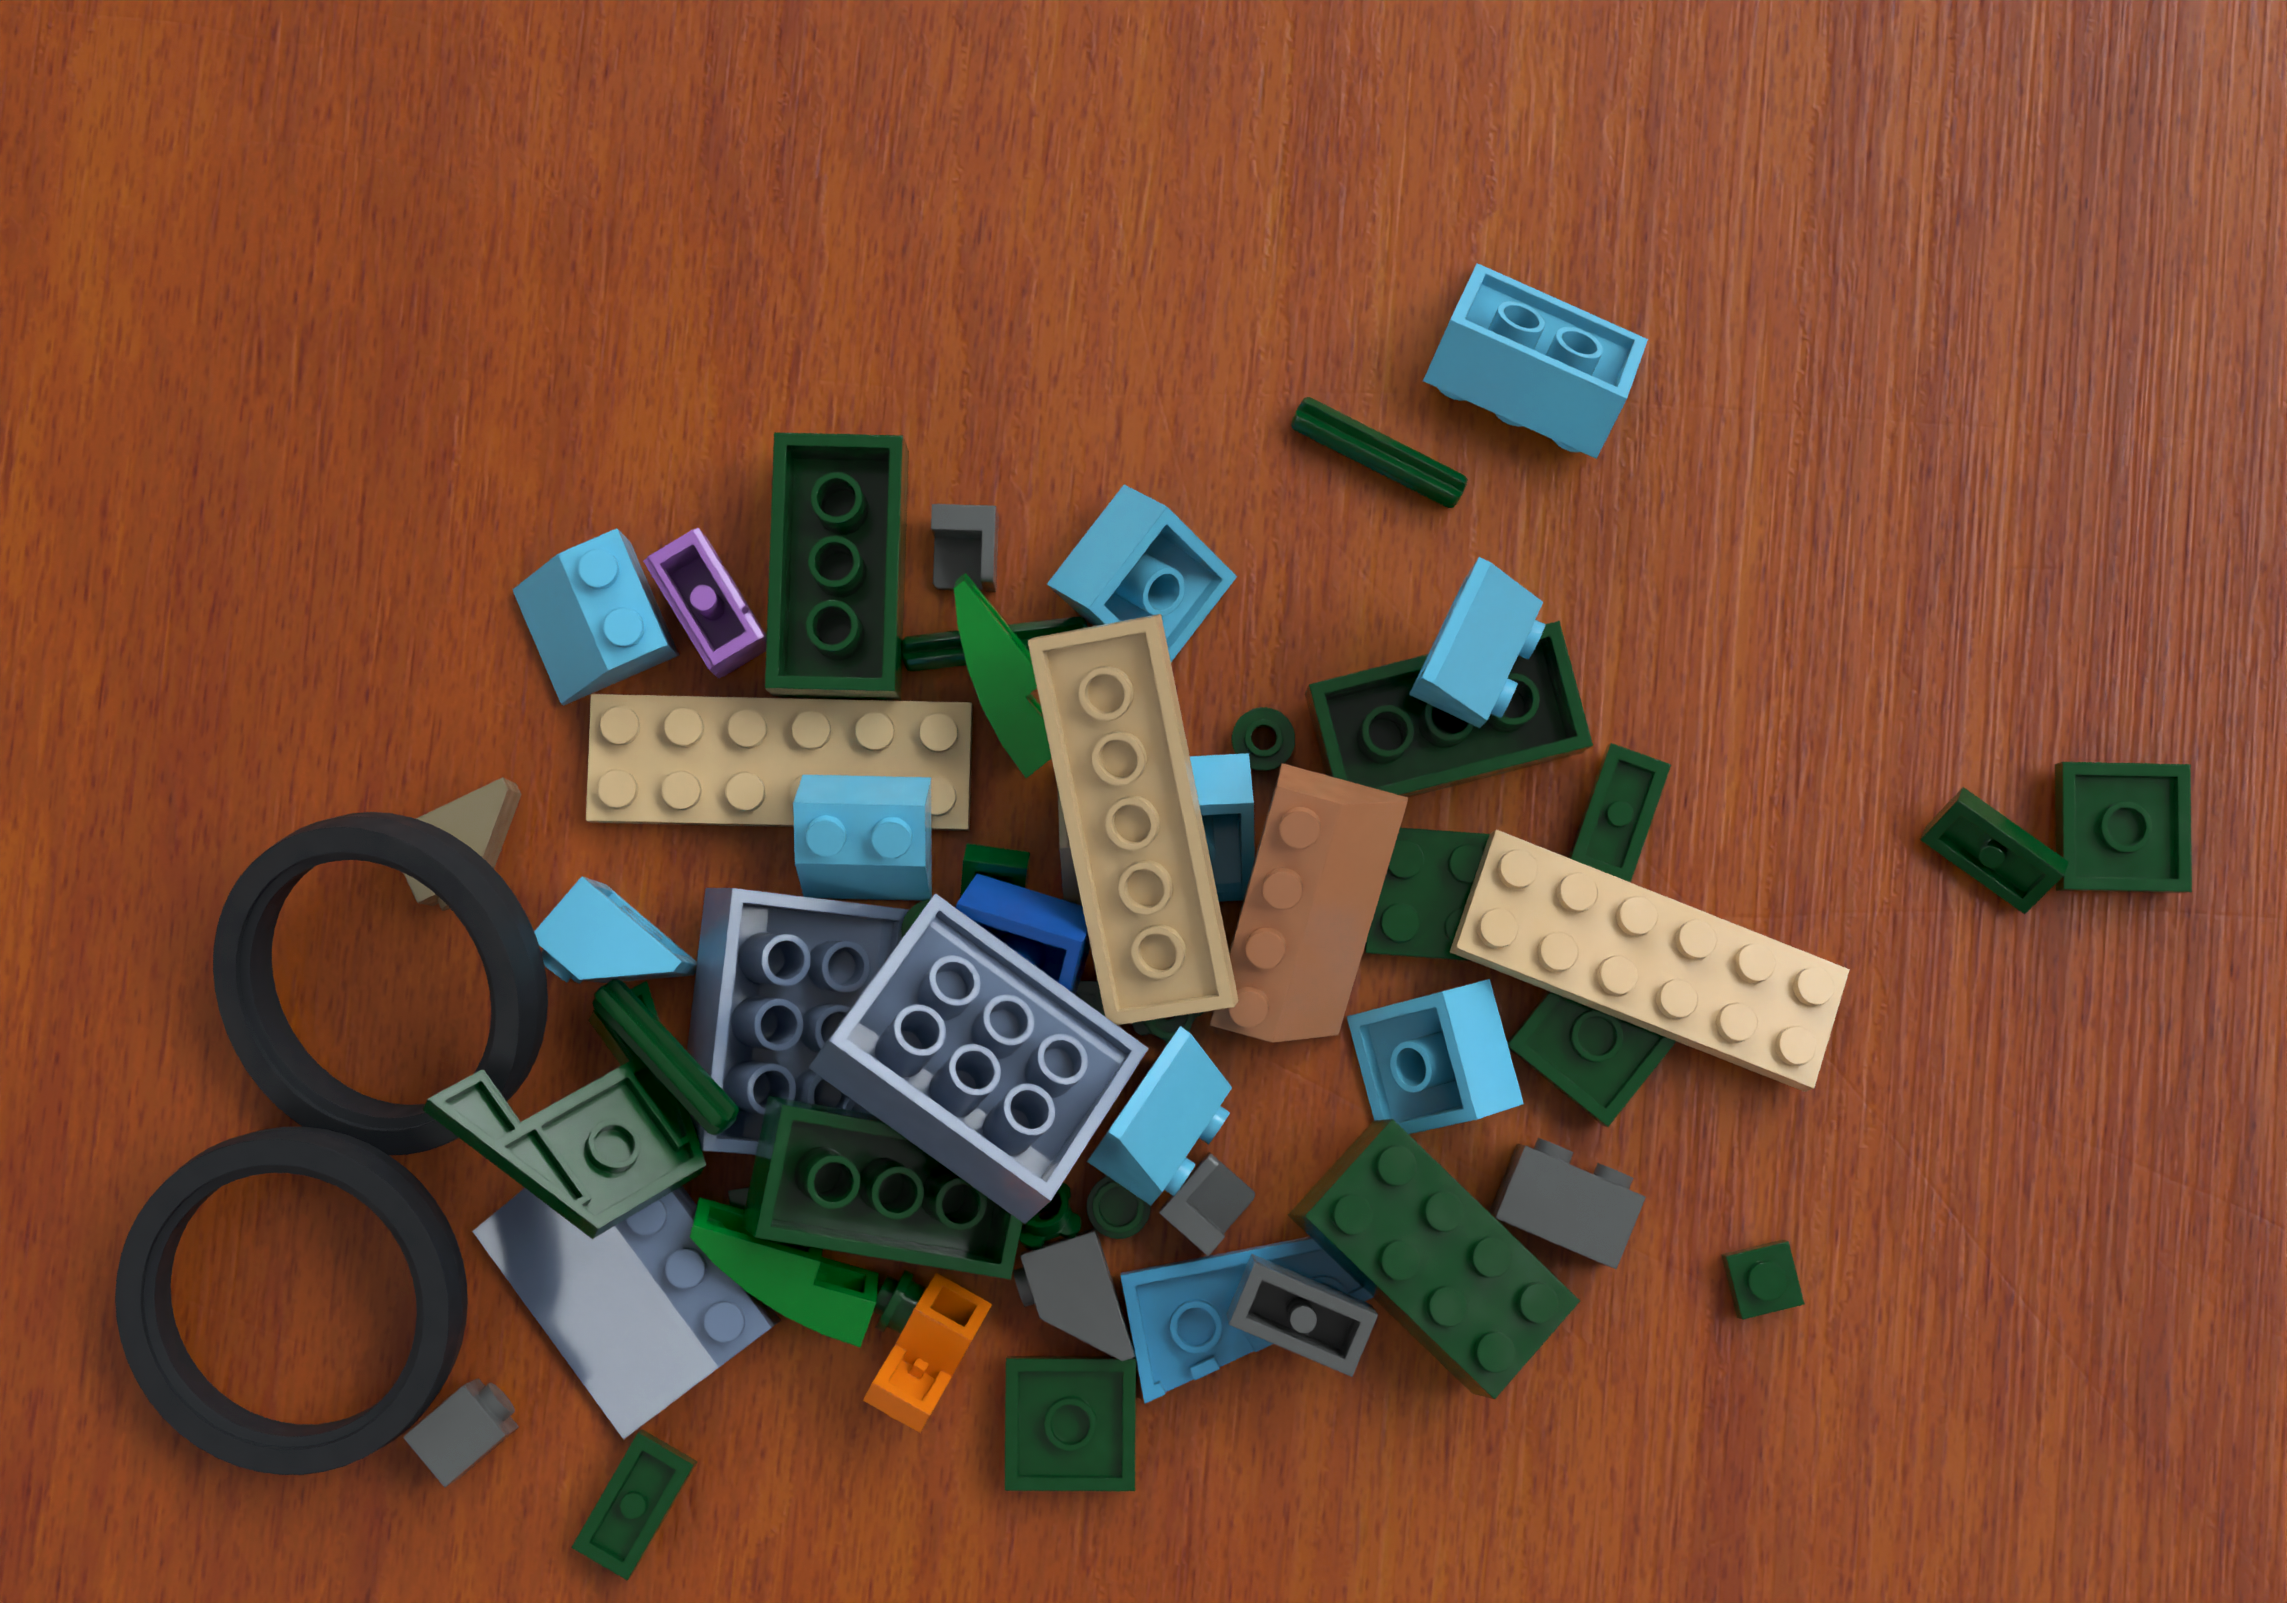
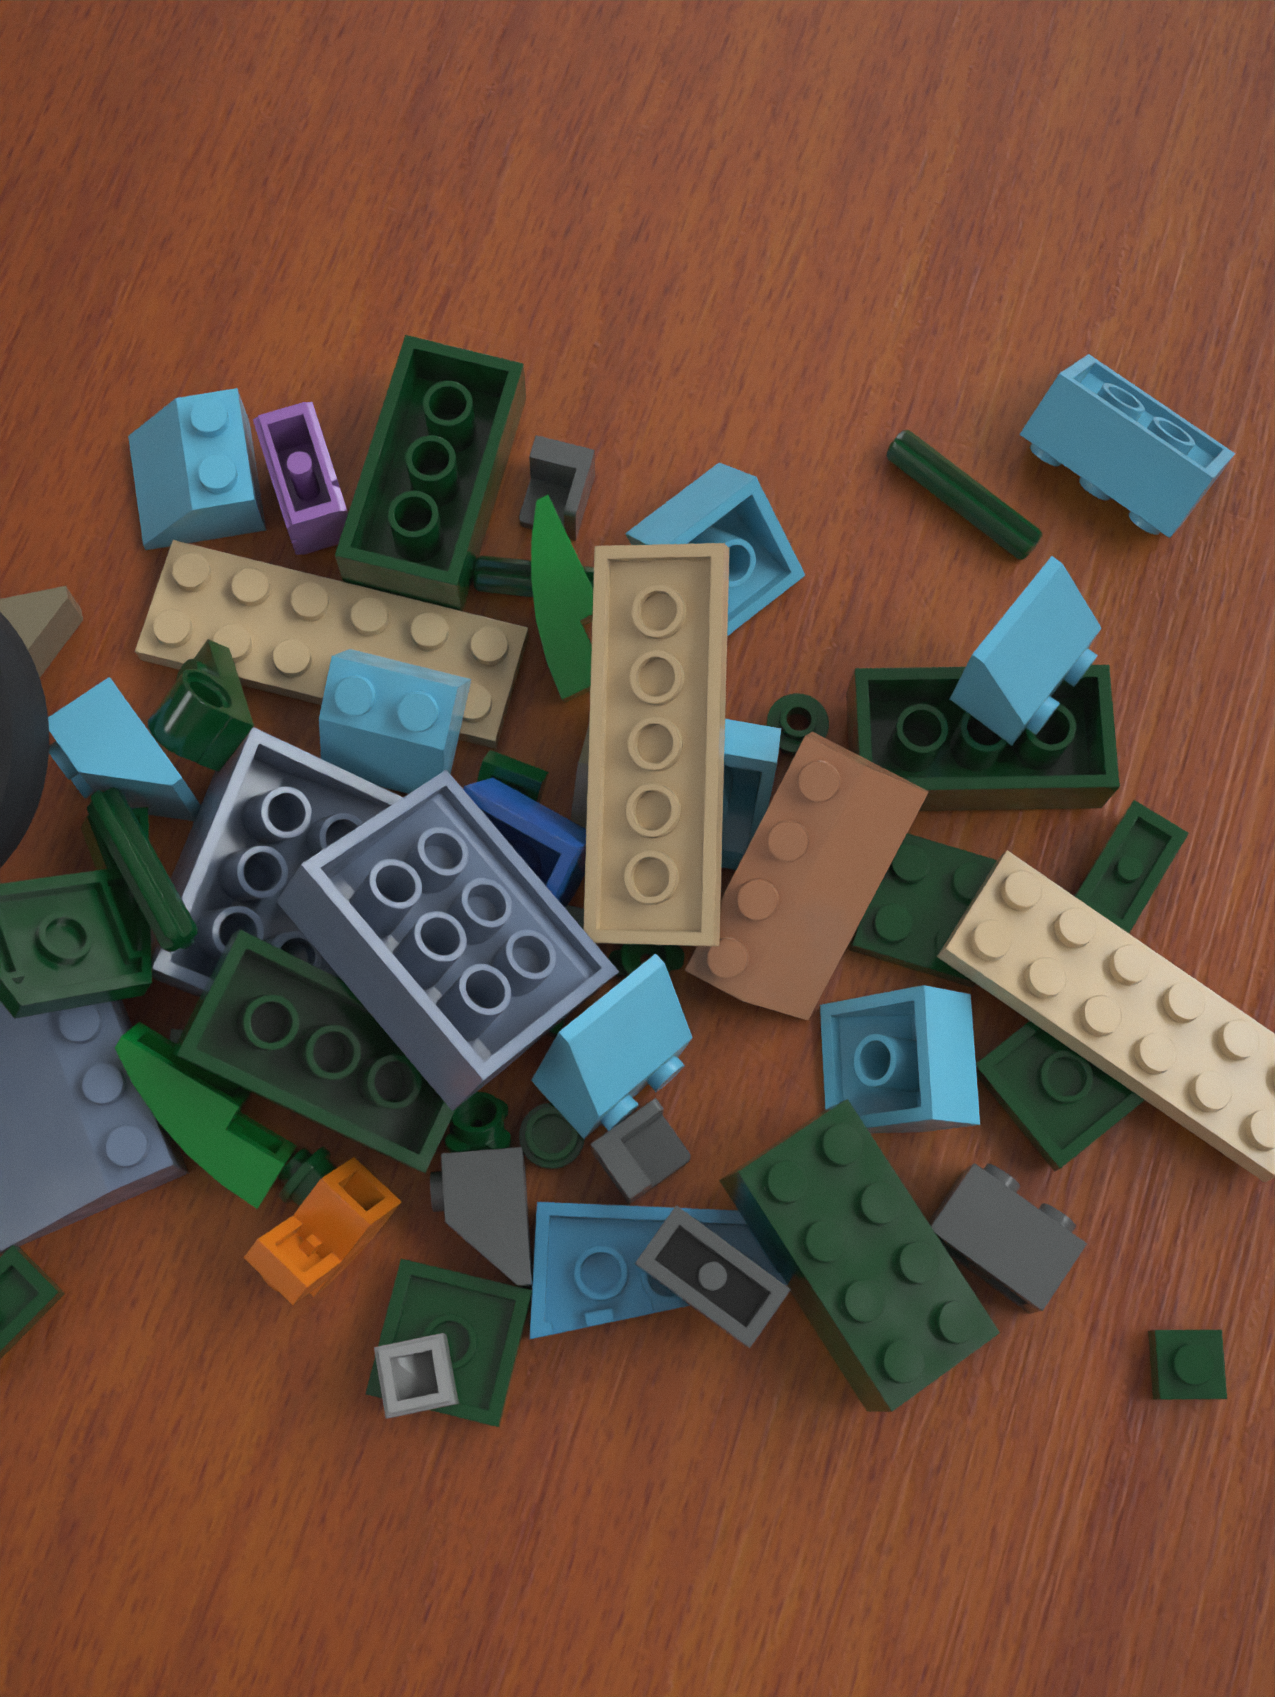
camera: 10 degrees right, 10 degrees down
(683, 879) = (204, 710): none -> dark green plate
(1049, 1467) = (416, 1375): none -> light grey slope

